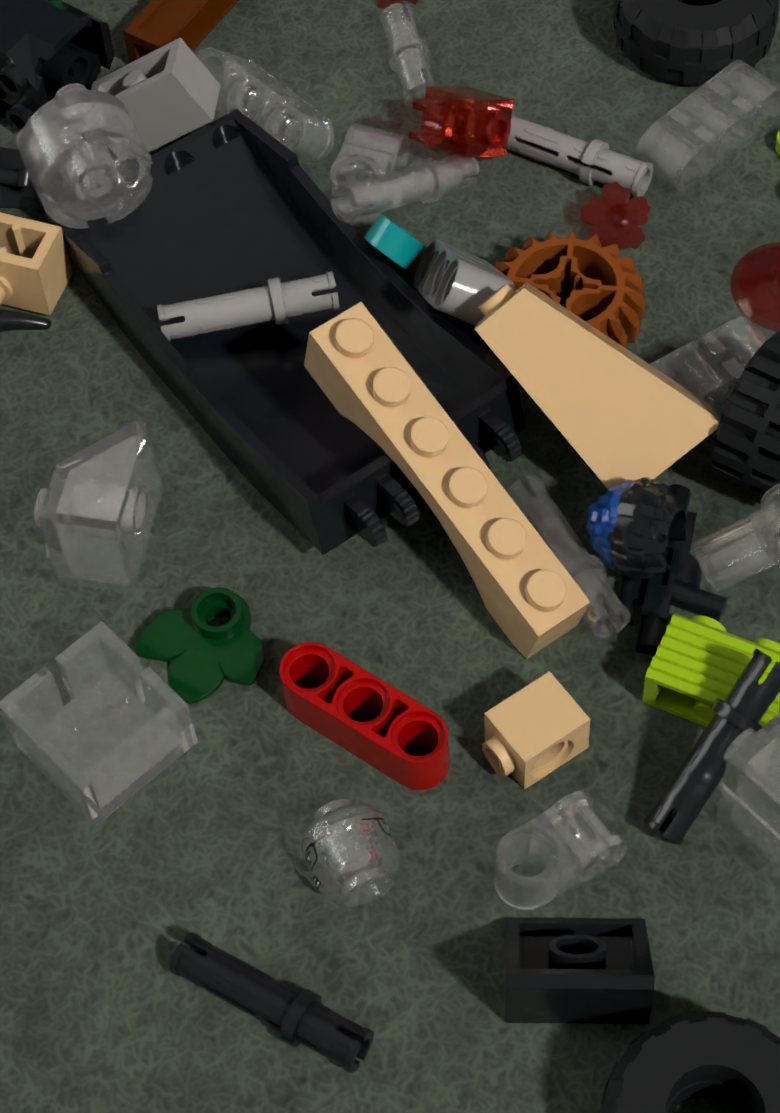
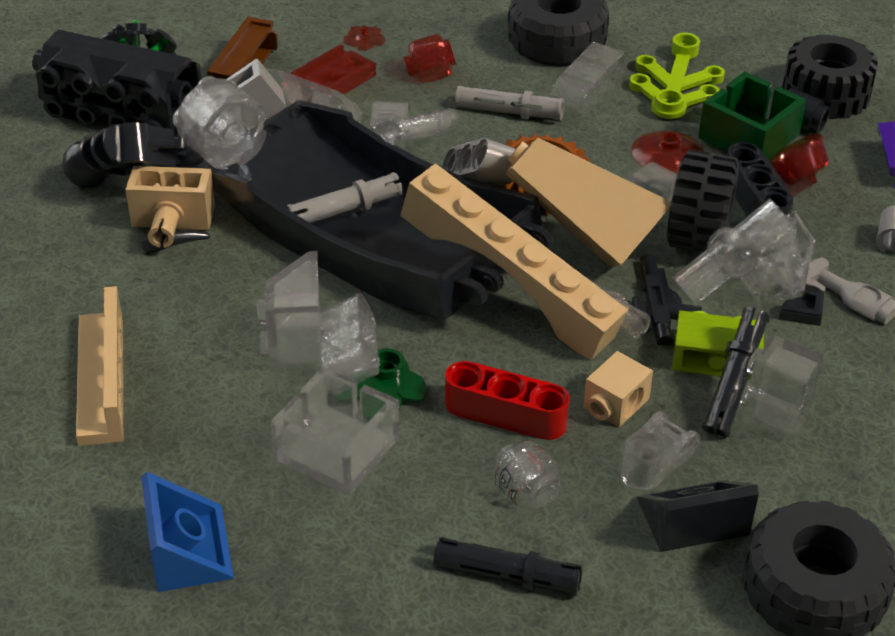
camera: 20 degrees left, 15 degrees down
(168, 570) = (349, 339): none -> clear beam
(321, 52) = (338, 70): none -> clear red plate
(395, 242) = (428, 148): teal beam -> none
(407, 51) = (390, 67): clear pin -> none
(464, 121) = (444, 90): clear red brick -> none
(473, 48) = (430, 58): none -> clear red head
(616, 217) = (549, 124): clear red plant -> none
(634, 526) = (638, 271): black piece -> none

